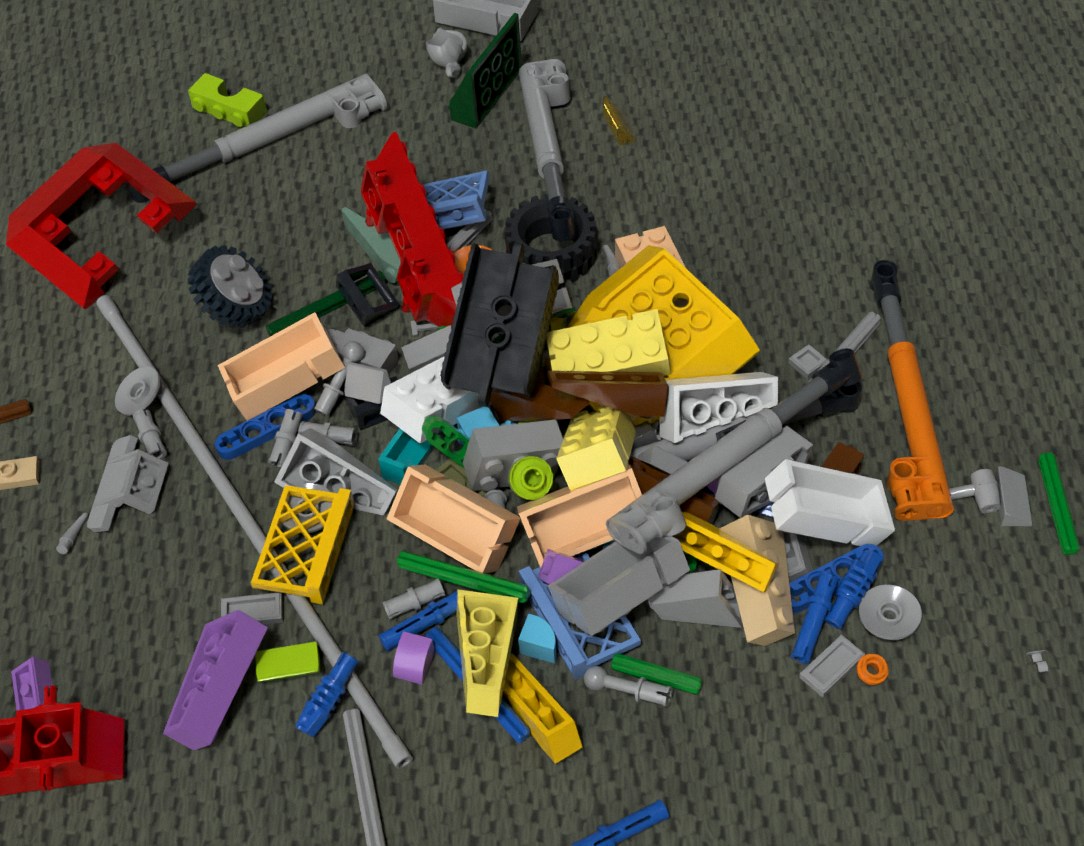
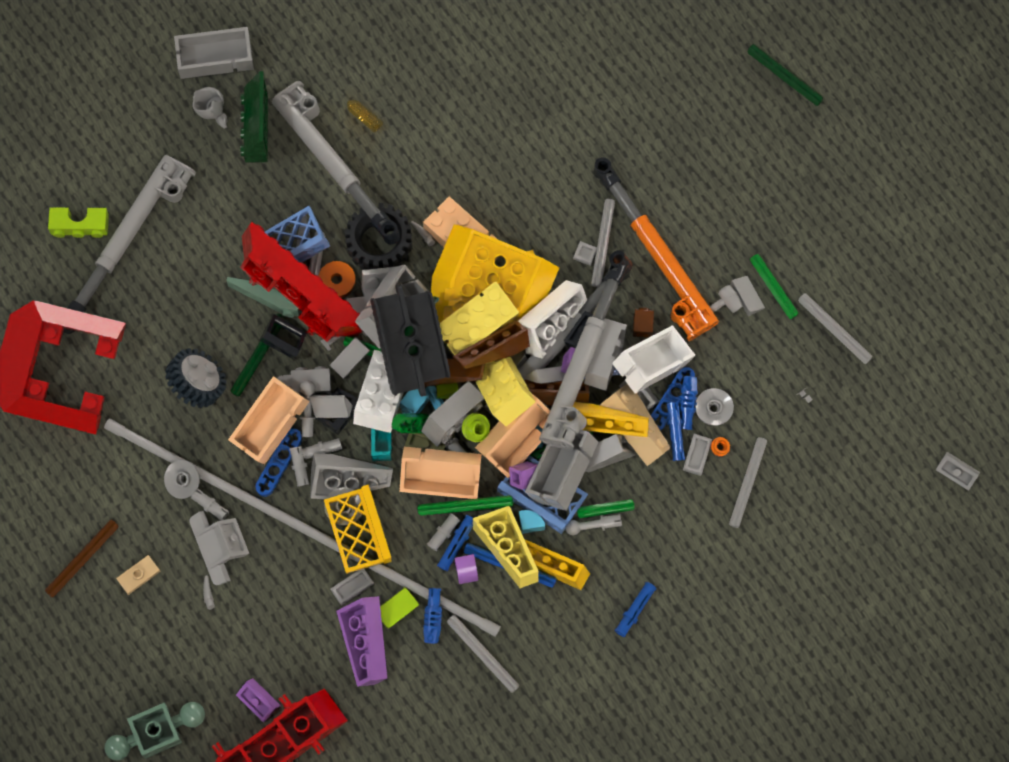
camera: 35 degrees left, 20 degrees up
(889, 737) = (748, 482): none -> light grey axle

